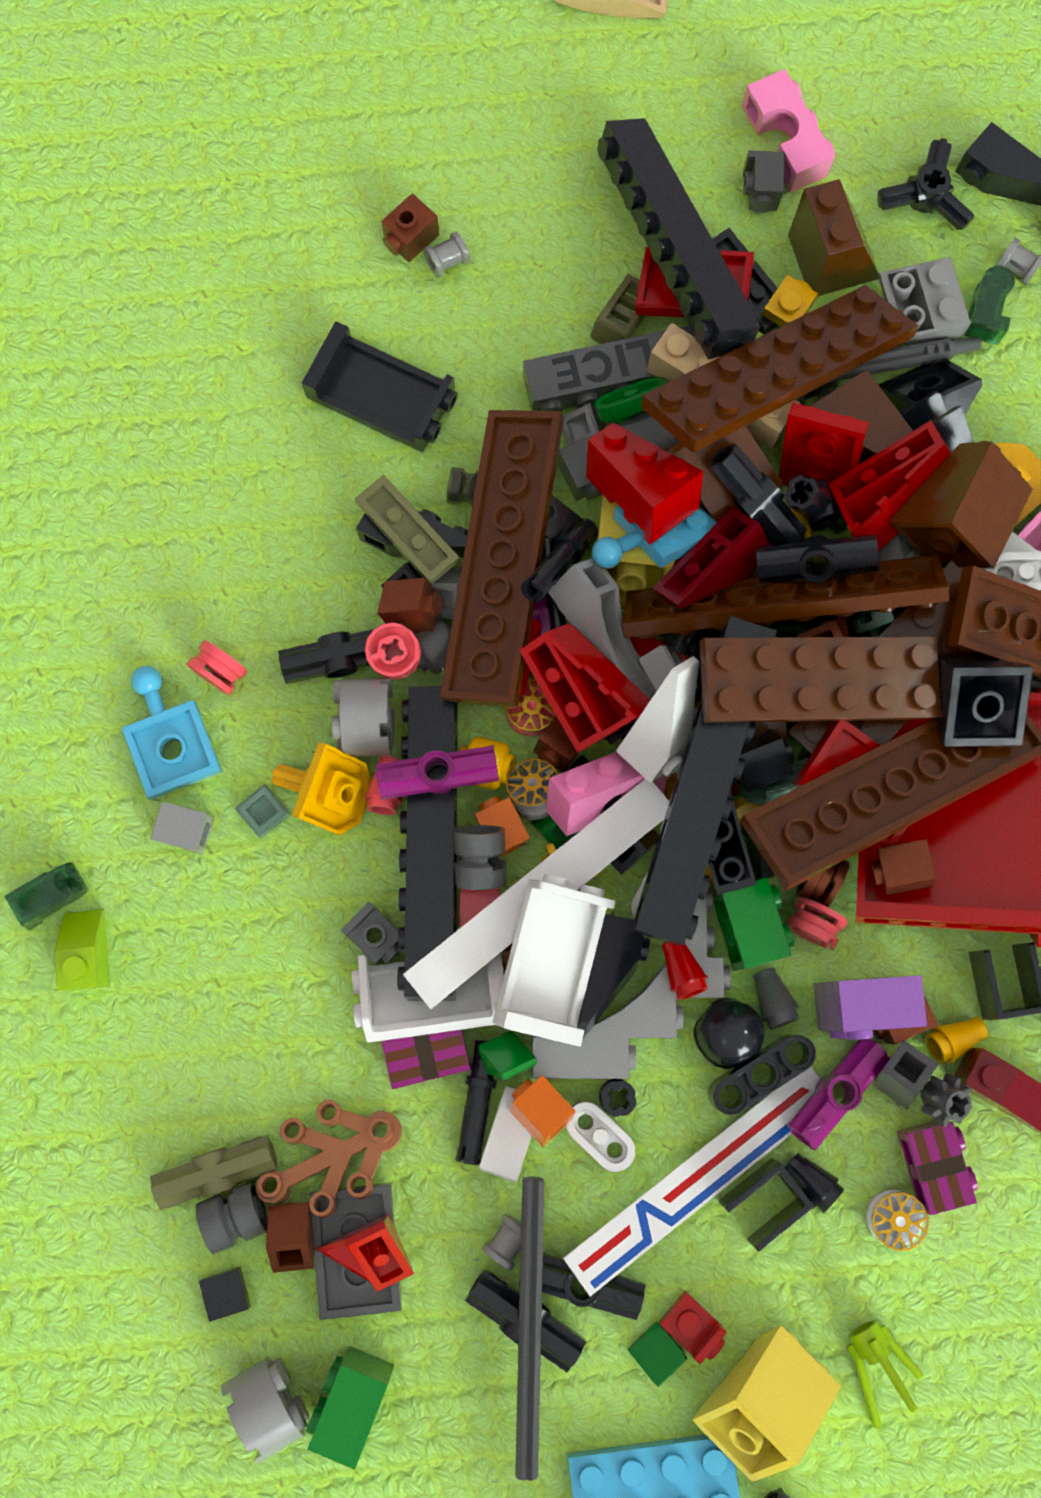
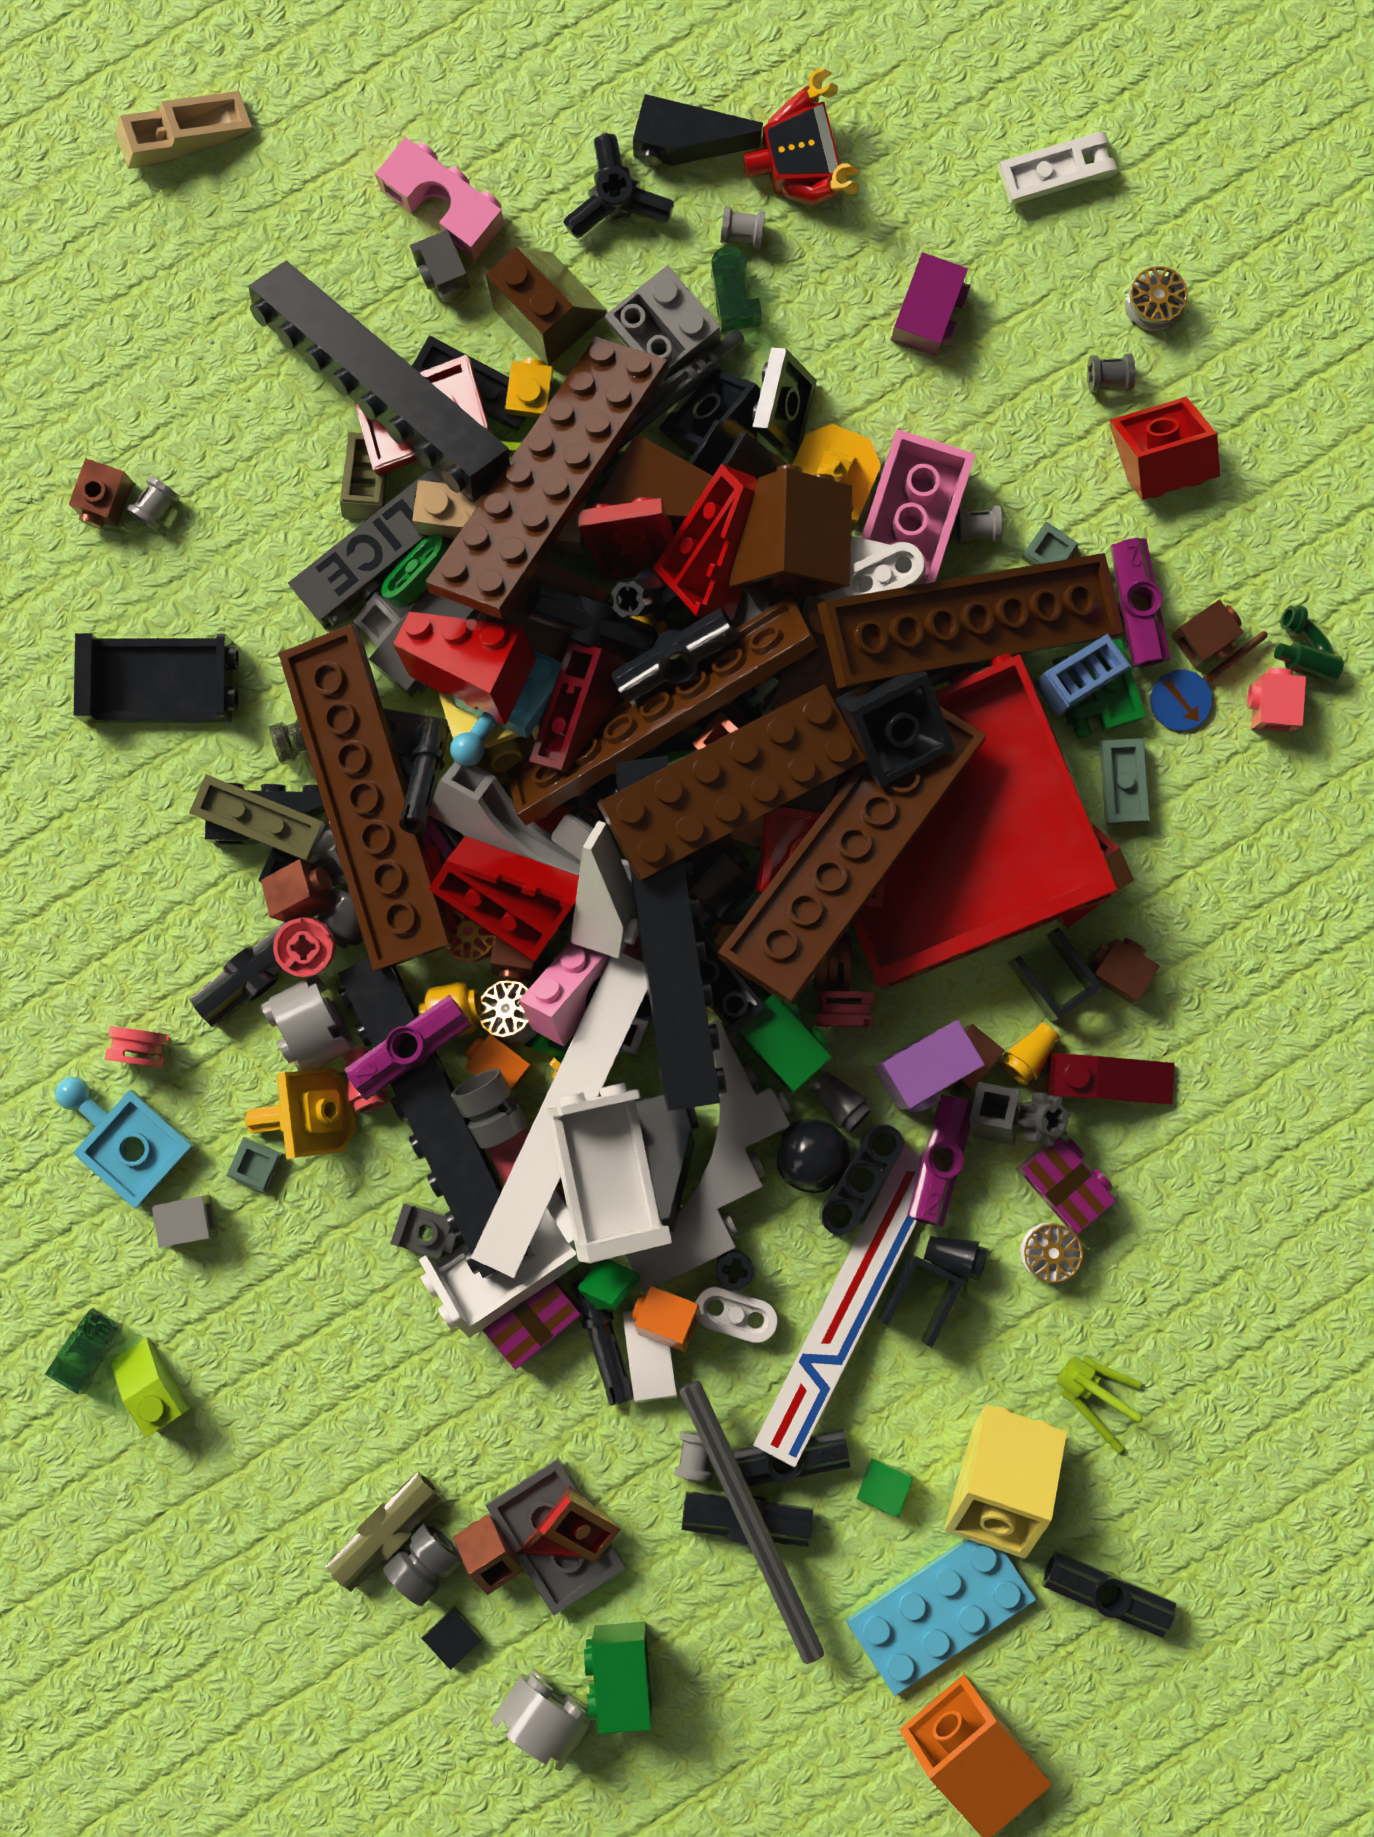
camera: 25 degrees left, 5 degrees up
(335, 1156) = (492, 1458): nougat plant -> none
(683, 971) = (739, 1121): red cone -> none
(694, 1328) = (908, 1446): red bracket -> none
(904, 867) = (899, 919): copper brick -> none
(997, 402) = (784, 402): none -> black plate

